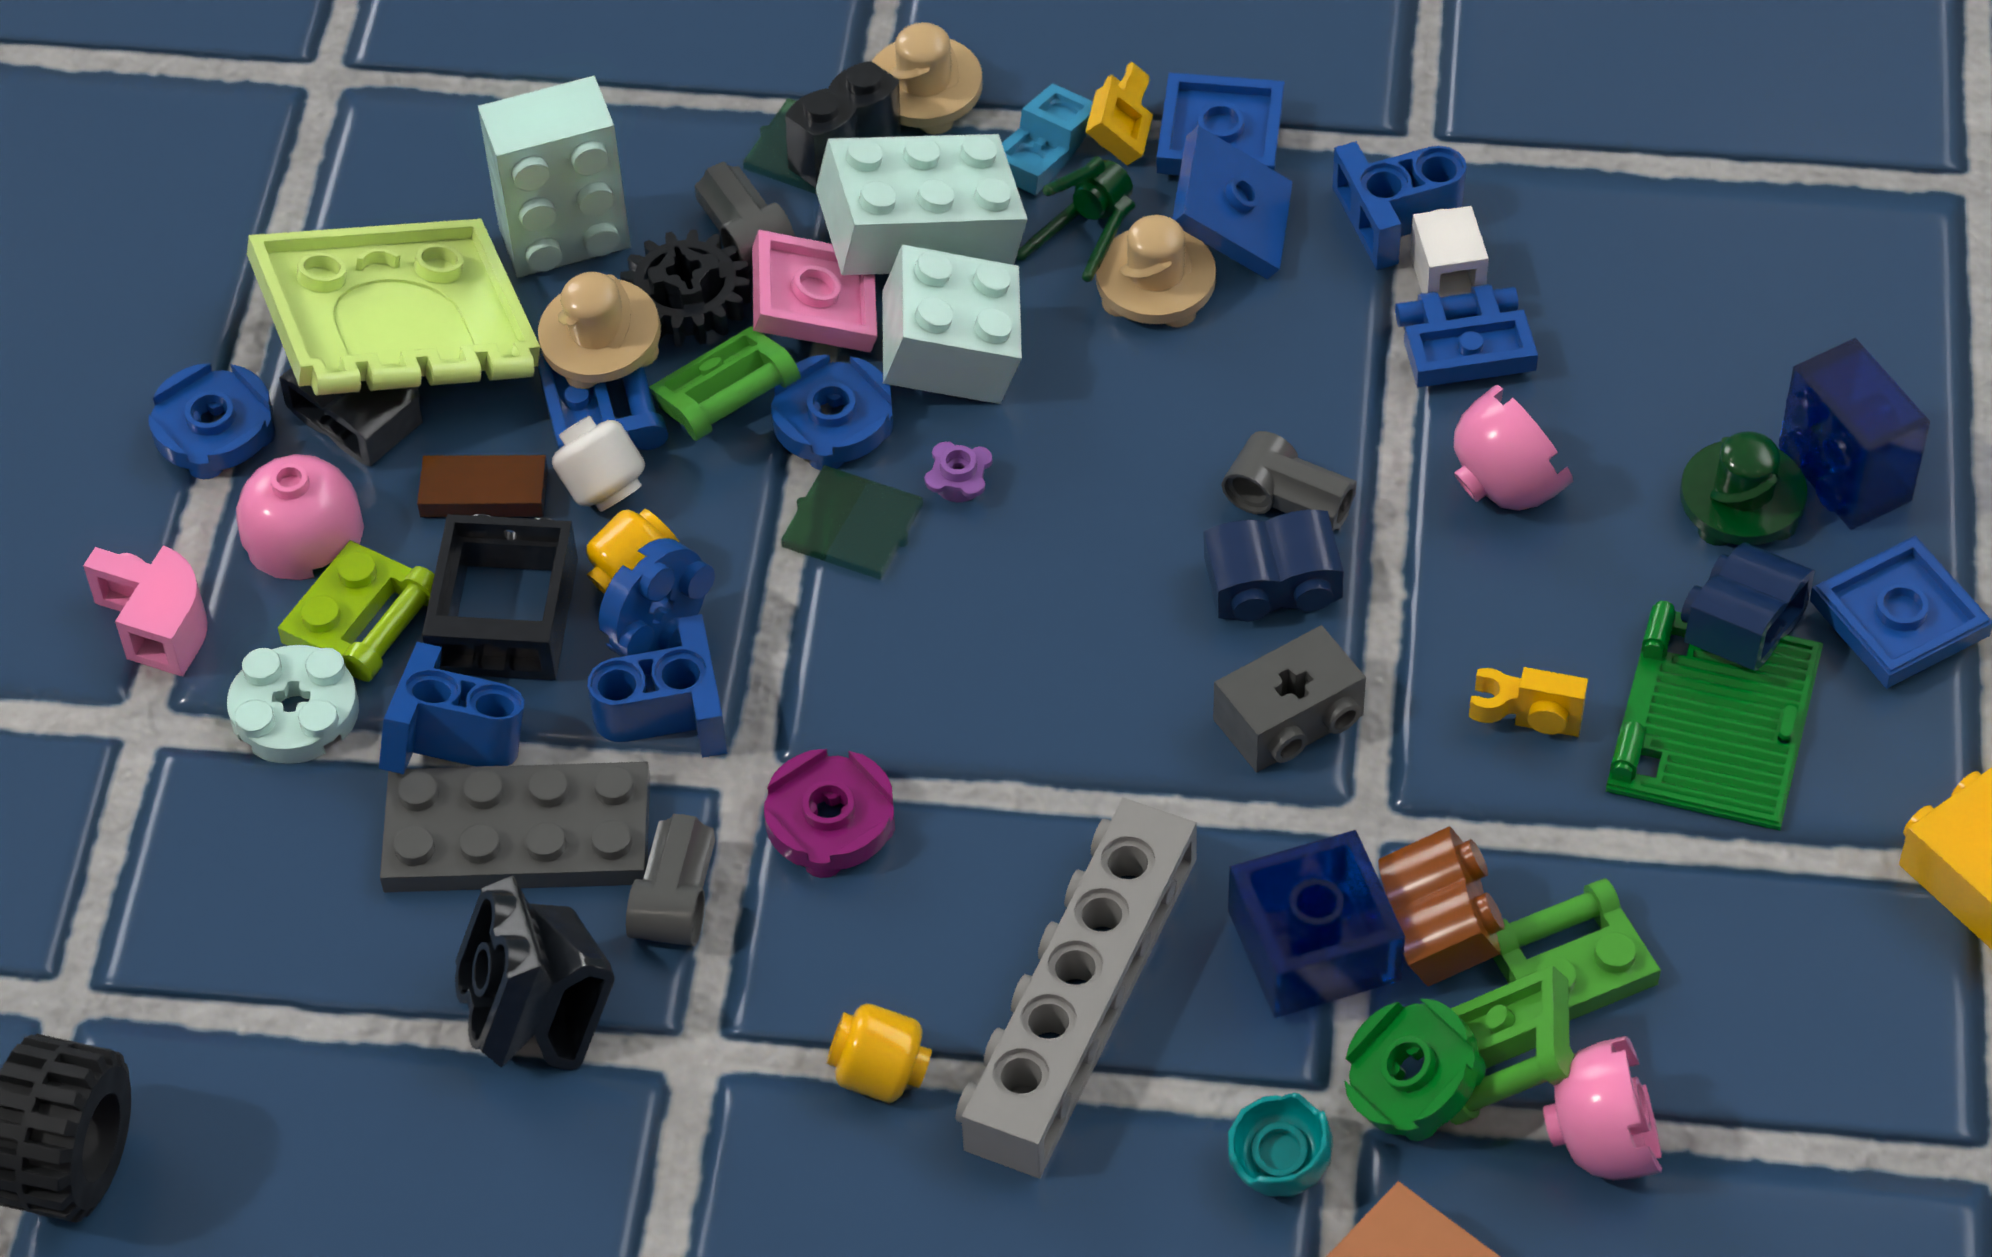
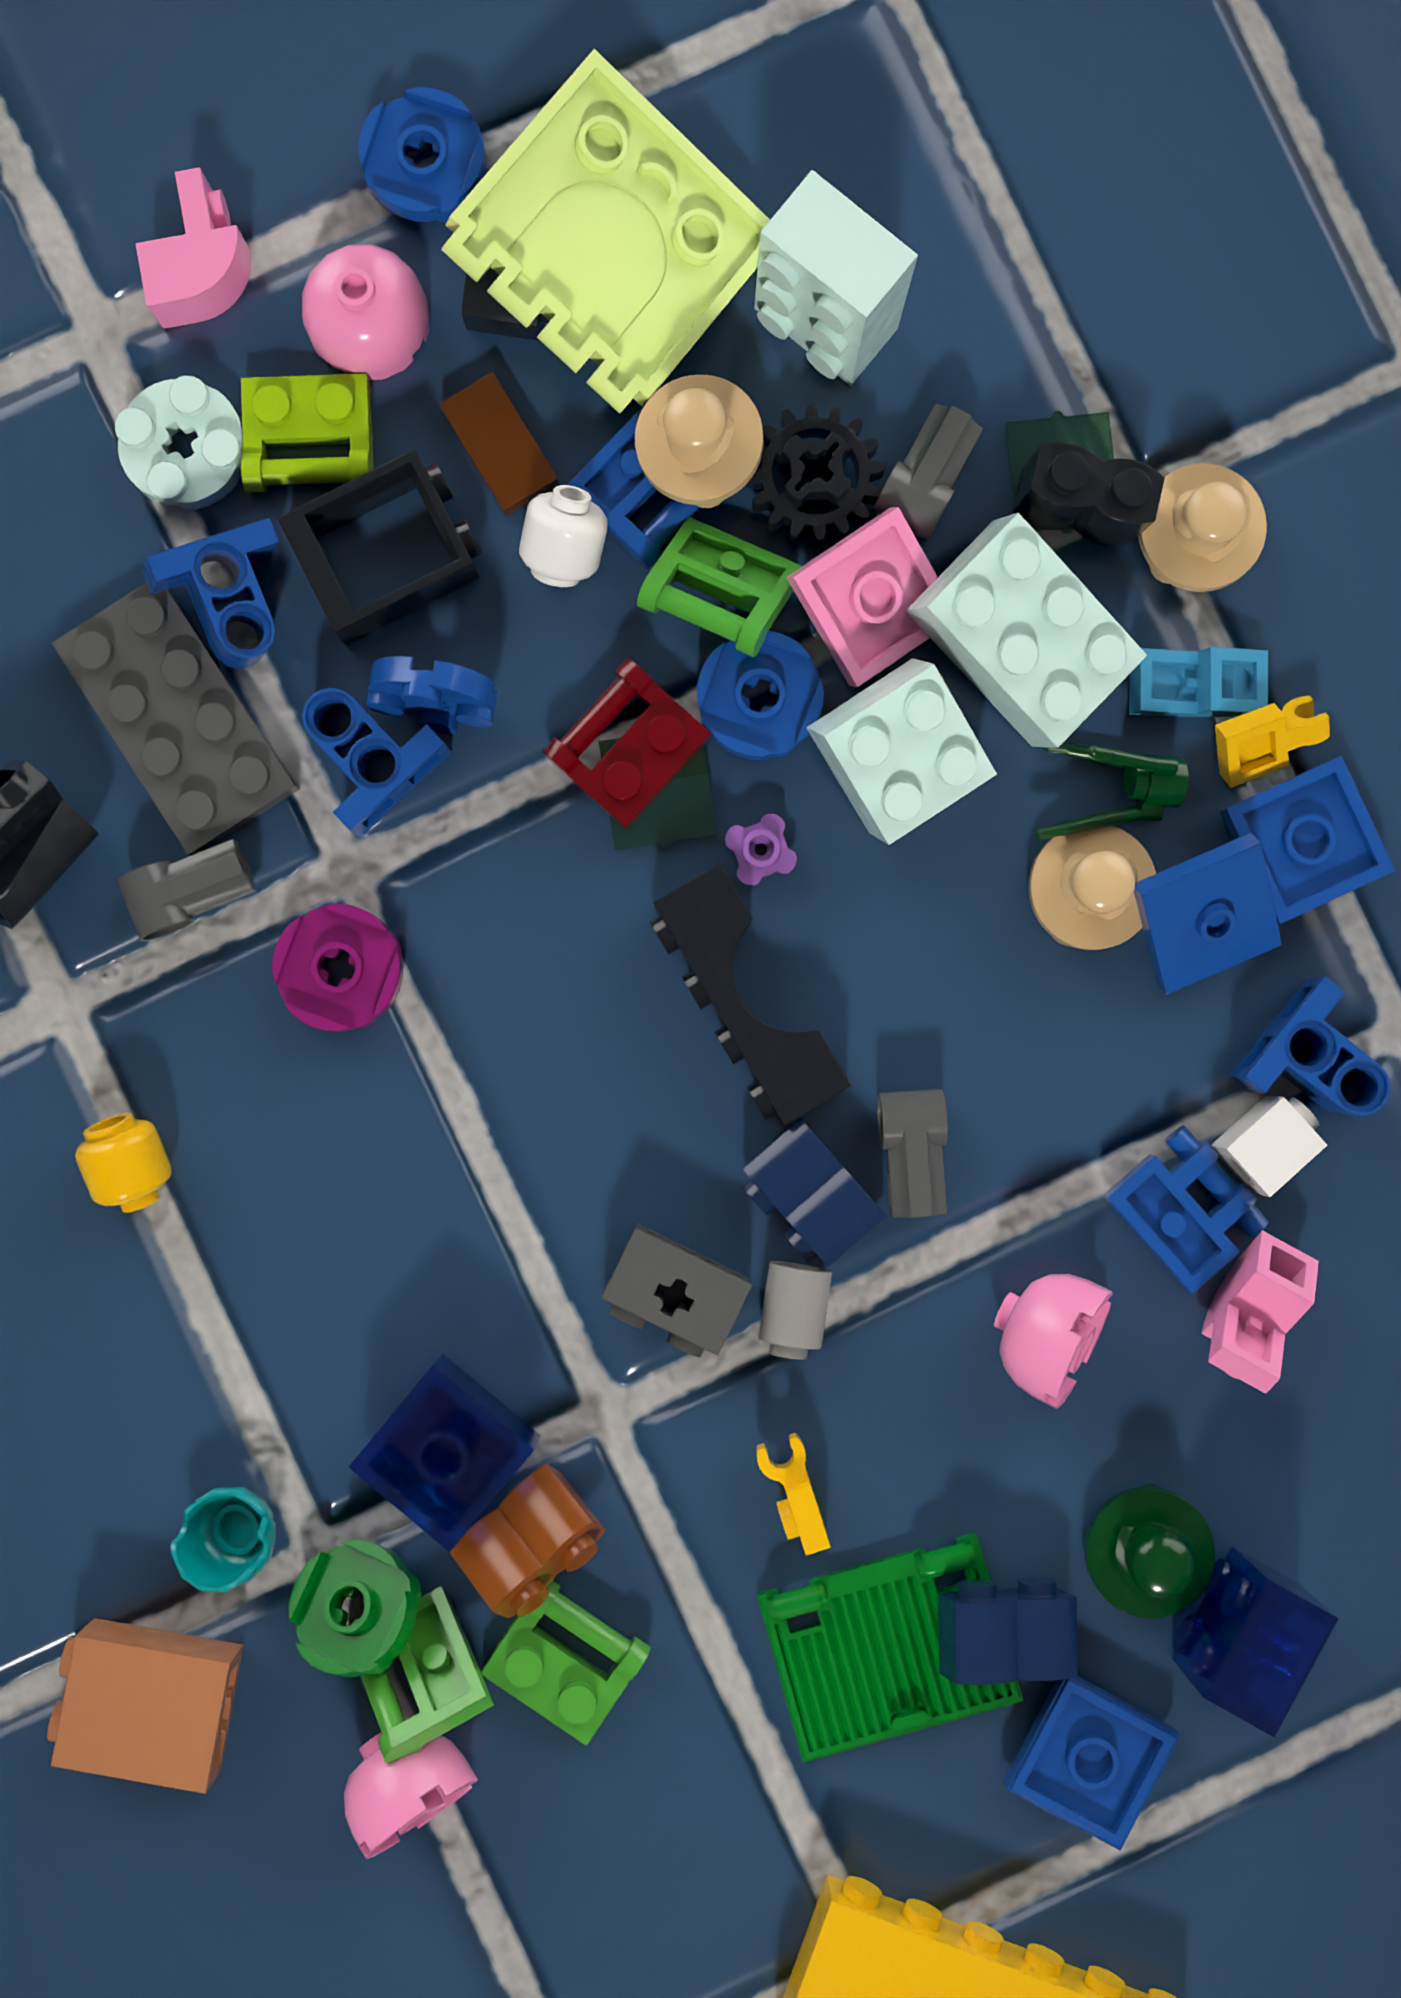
camera: 50 degrees right, 35 degrees up
(619, 544) = (490, 631): yellow head -> none
(820, 509) = (642, 758): none -> dark red plate
(1027, 1126) = (126, 1321): light grey brick -> none
(1143, 536) = (790, 1067): none -> black arch
(1365, 624) = (794, 1308): none -> light grey brick
(1576, 317) = (1256, 1307): none -> bright pink brick

